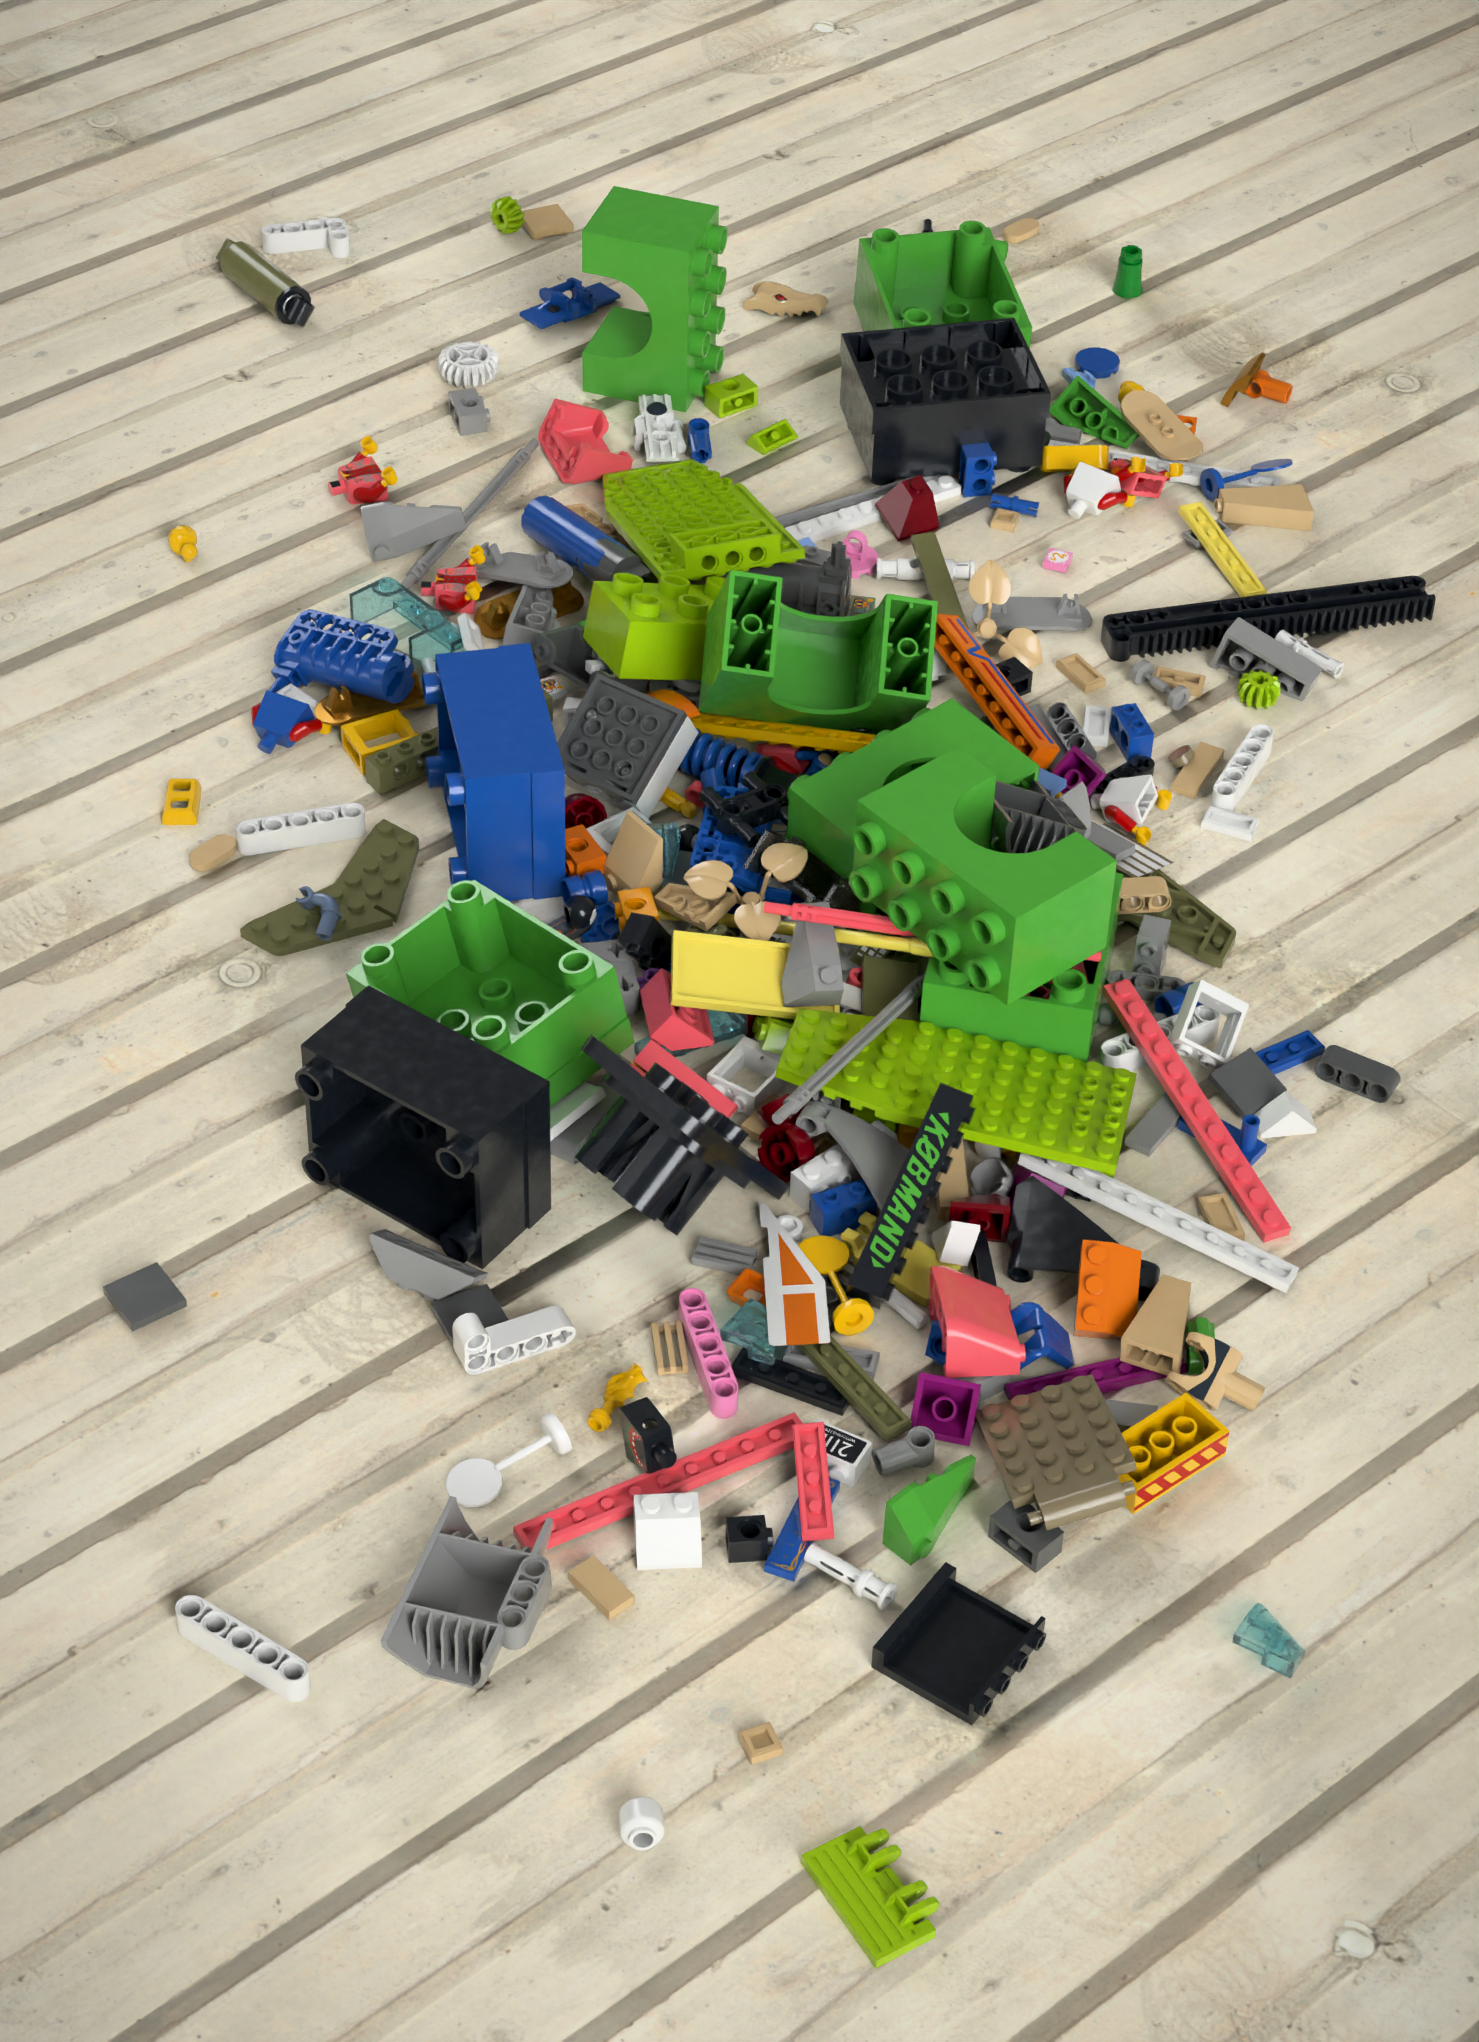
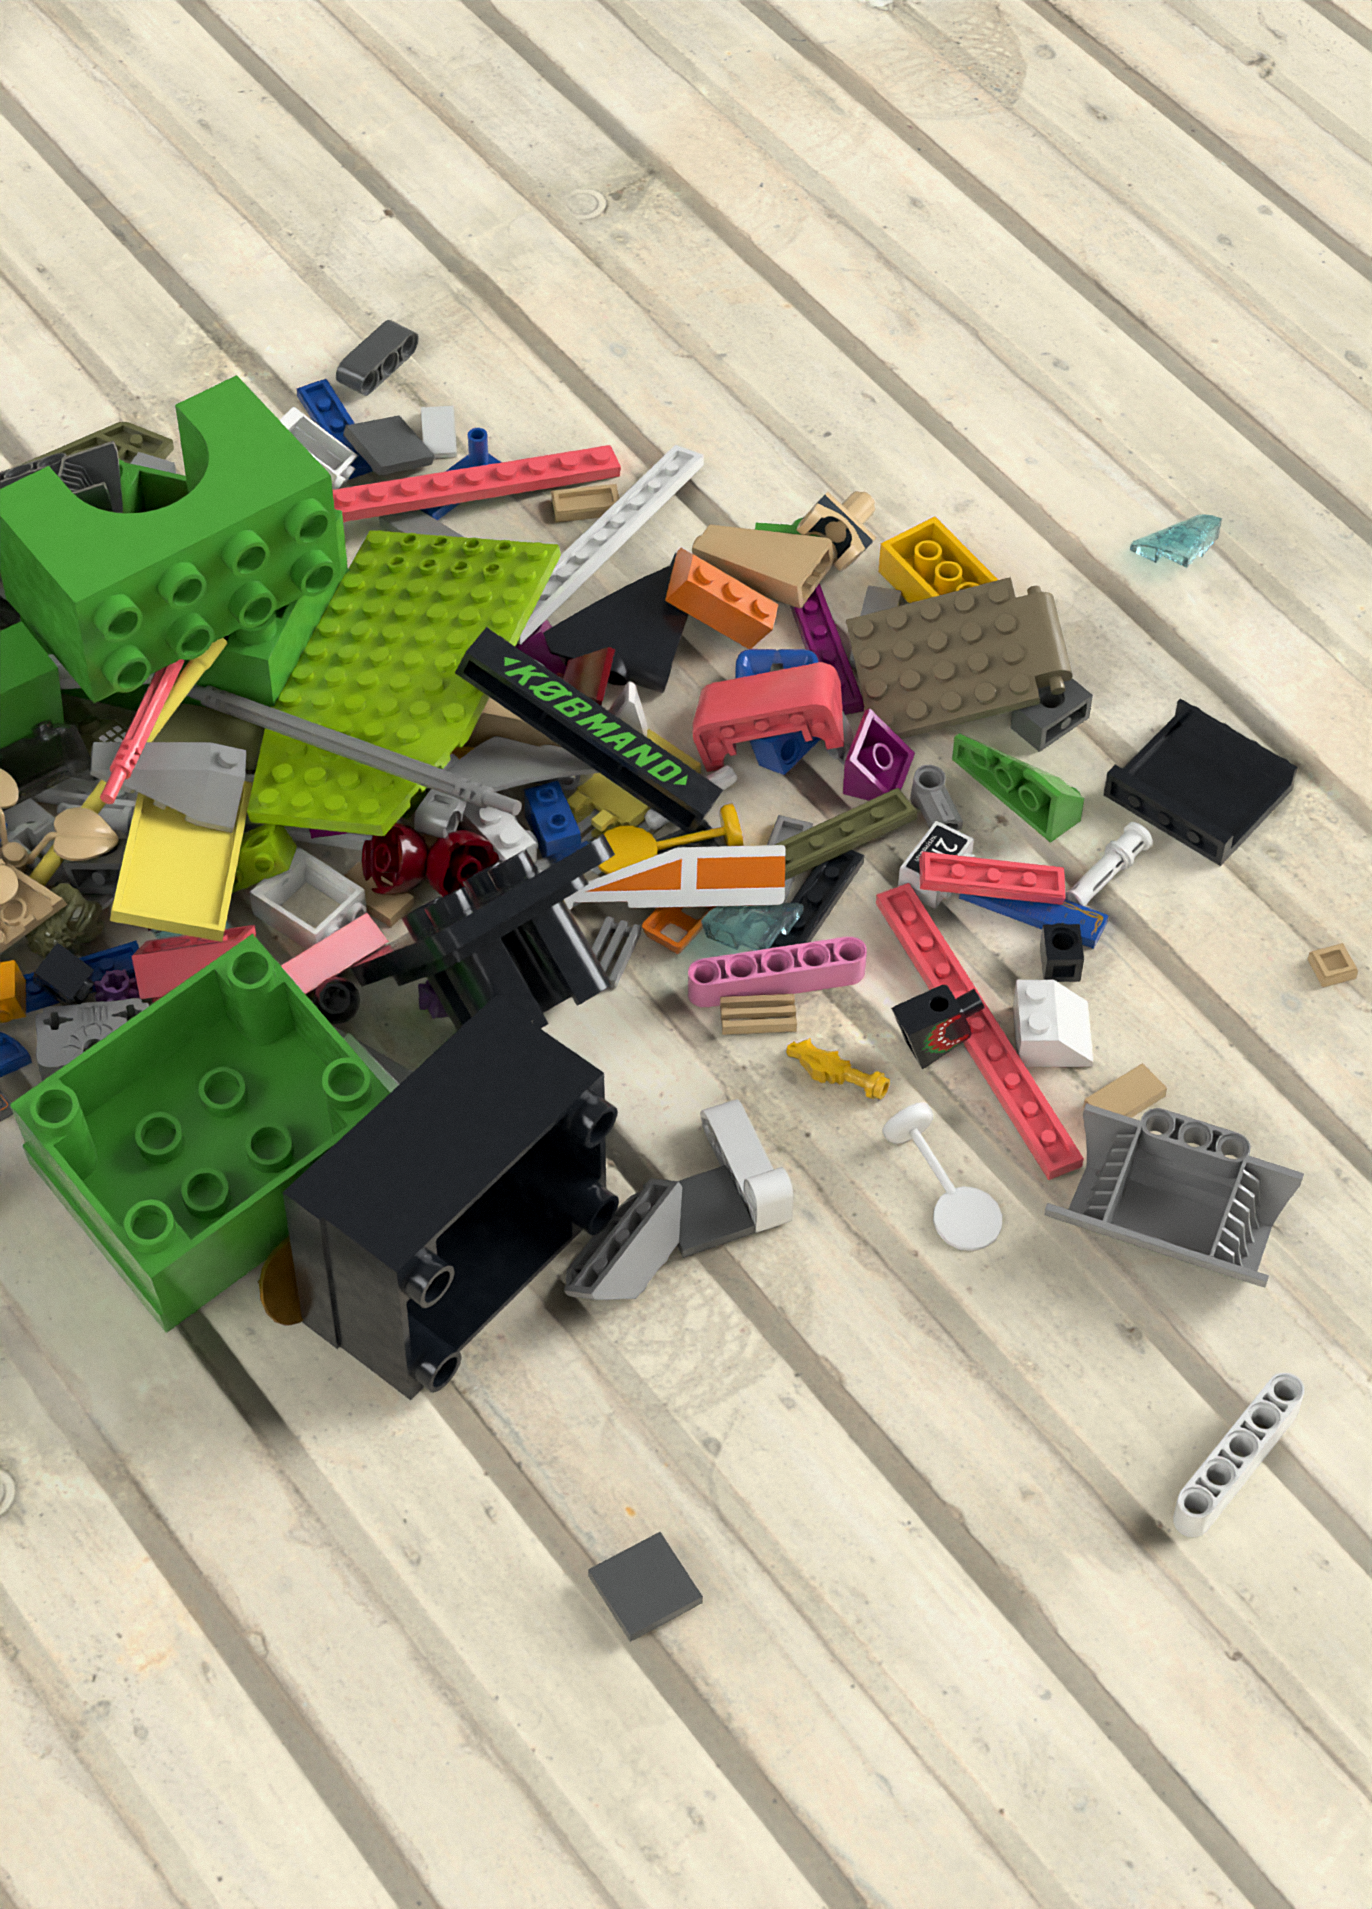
camera: 85 degrees left, 10 degrees up
(982, 1260) = (675, 700): black beam -> none

